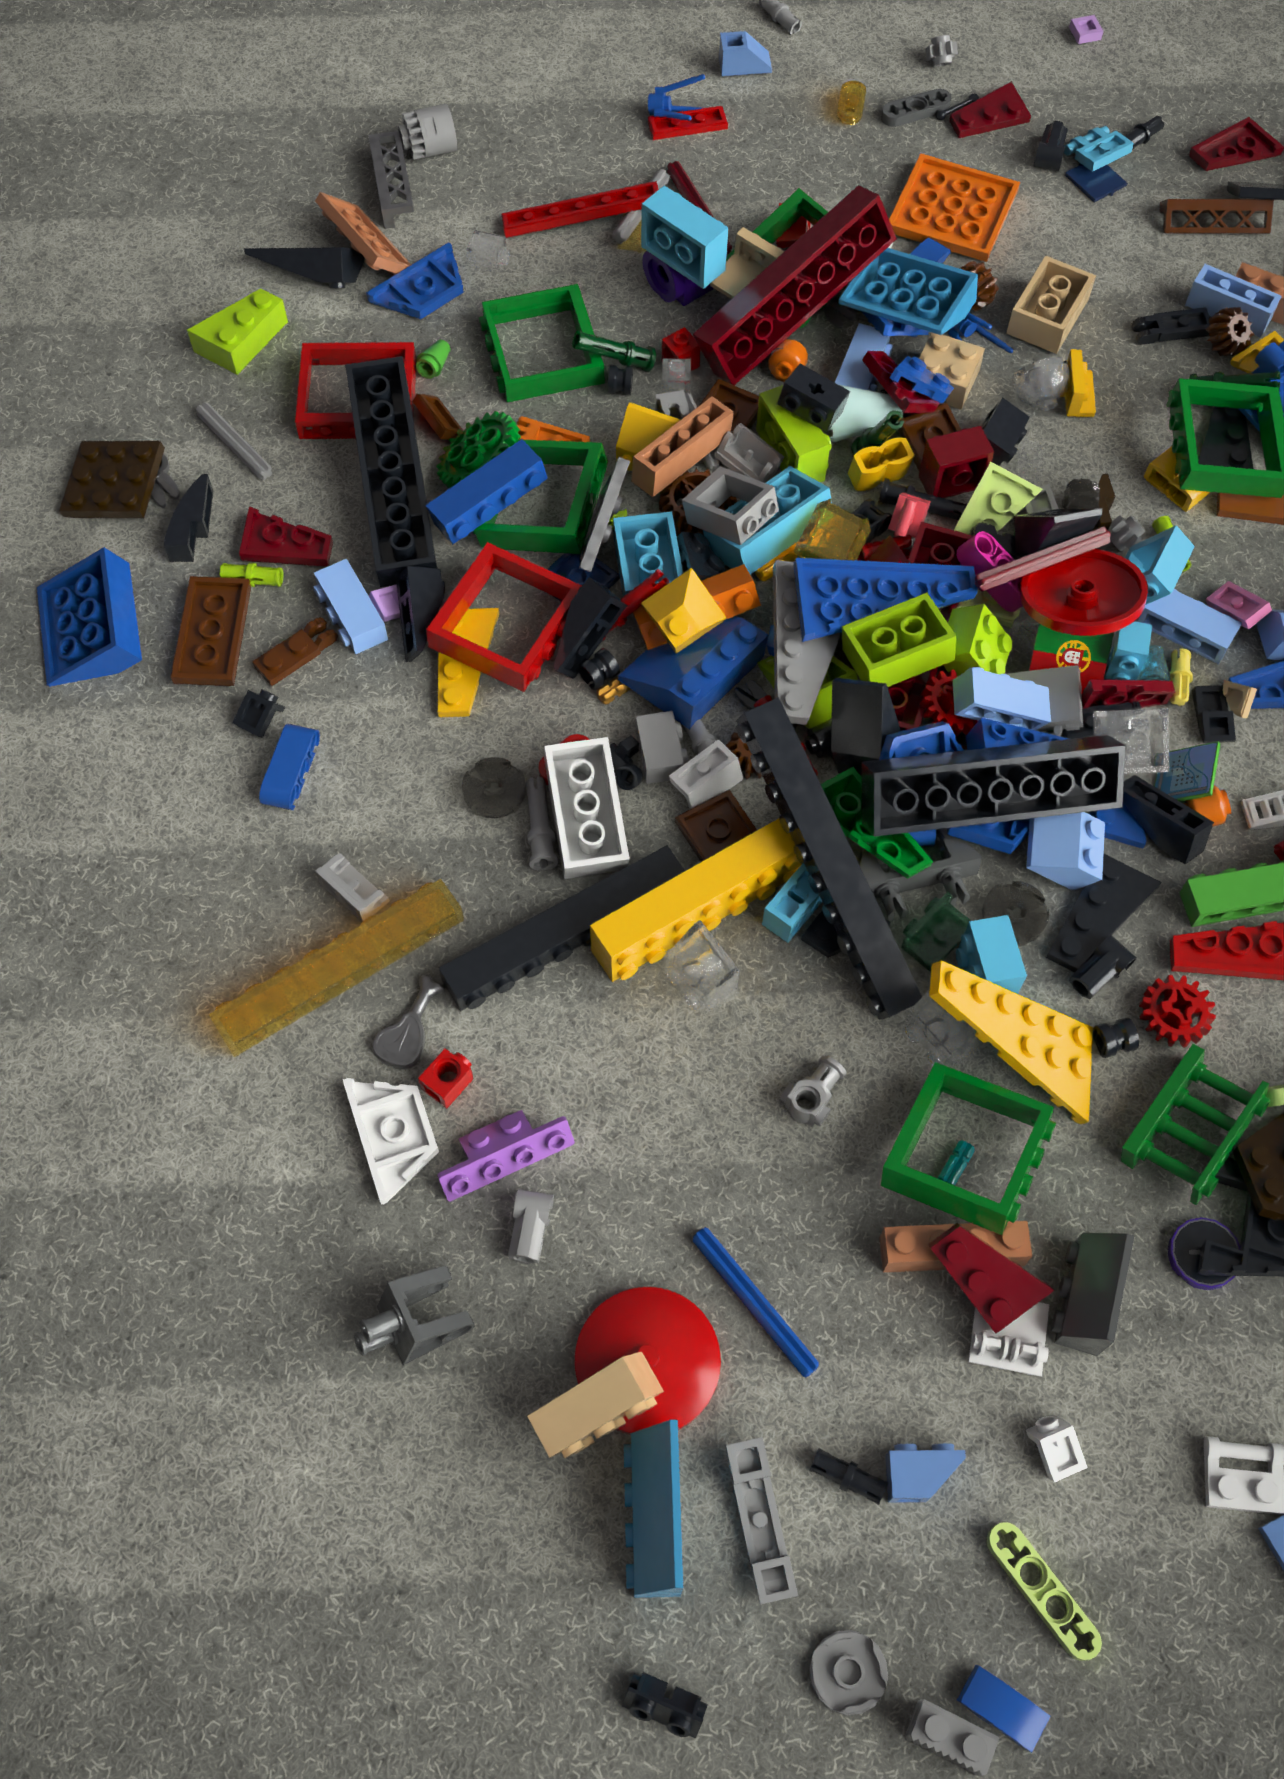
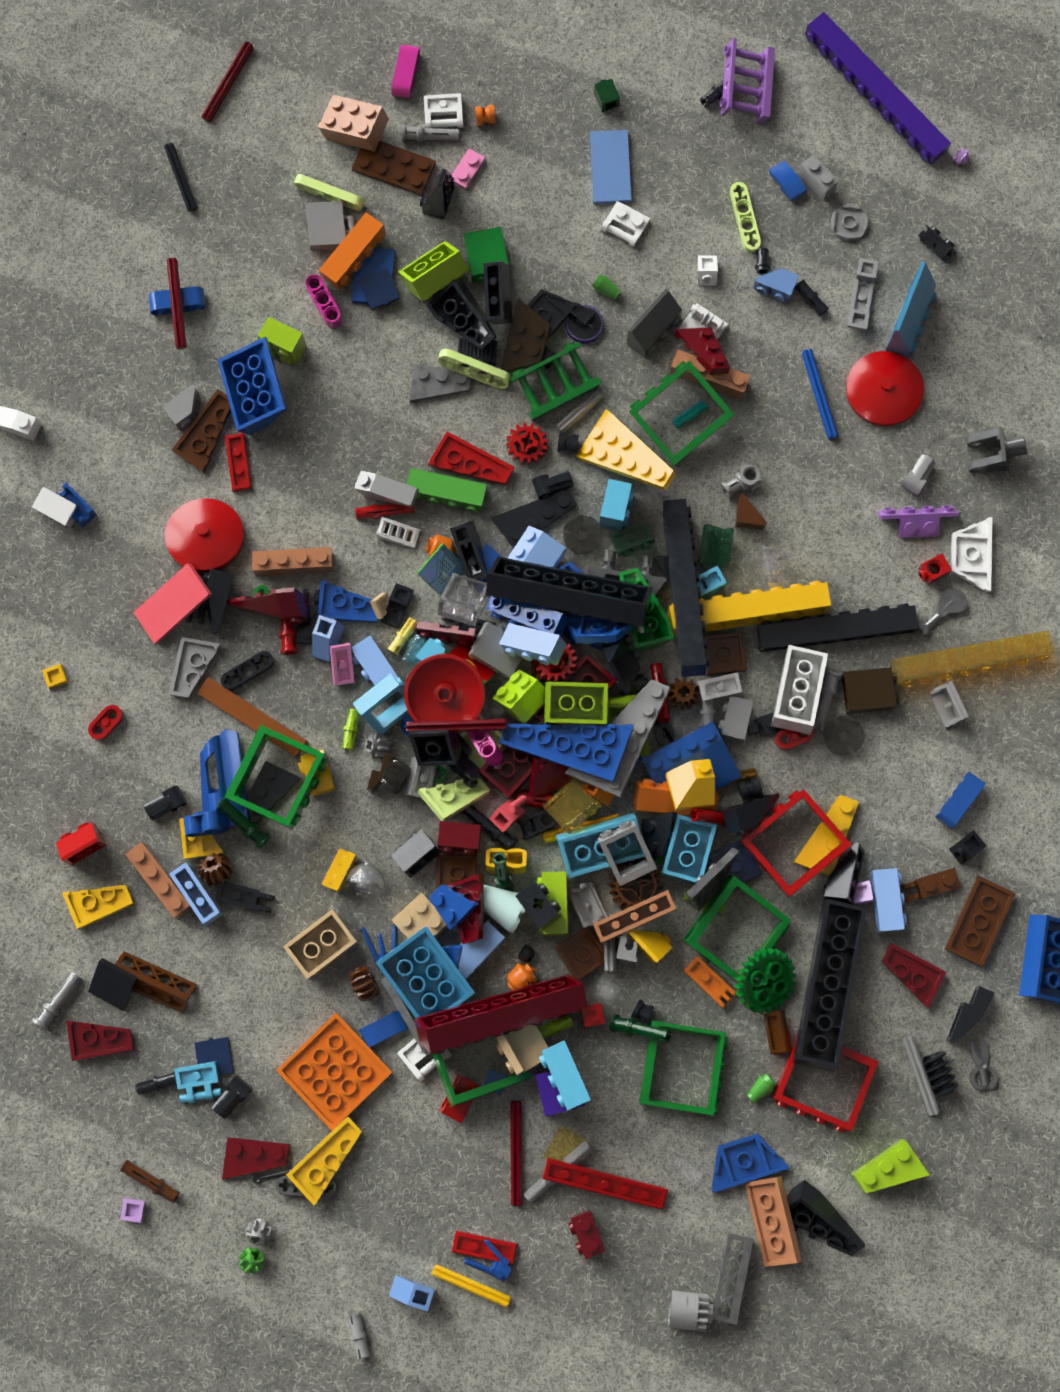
camera: 155 degrees left, 15 degrees up
(112, 479) = (1012, 1072): dark brown plate -> none
(209, 444) = (940, 1073): none -> black piece
(256, 574) = (941, 955): lime pin -> none
(480, 859) = (869, 690): none -> dark brown brick
(487, 491) = (776, 932): blue brick -> none
(578, 161) = (587, 1234): none -> dark red brick
(596, 1406) = (923, 366): tan brick -> none
(624, 773) = (761, 709): black hinge -> none
(700, 88) = (471, 1286): none -> yellow axle
(779, 1040) = (747, 515): none -> reddish brown slope
(806, 973) = (716, 546): none -> clear green bracket
(851, 102) = (353, 1210): clear yellow plate -> none
(912, 123) = (321, 1164): none -> yellow wing
(928, 22) = (251, 1260): none -> bright green gear
(969, 1511) = (762, 261): none -> black pin
(1086, 56) = (170, 1194): none -> reddish brown pin
(1126, 1101) = (579, 411): none -> light grey axle
(1208, 1333) = (606, 287): none -> bright green cone

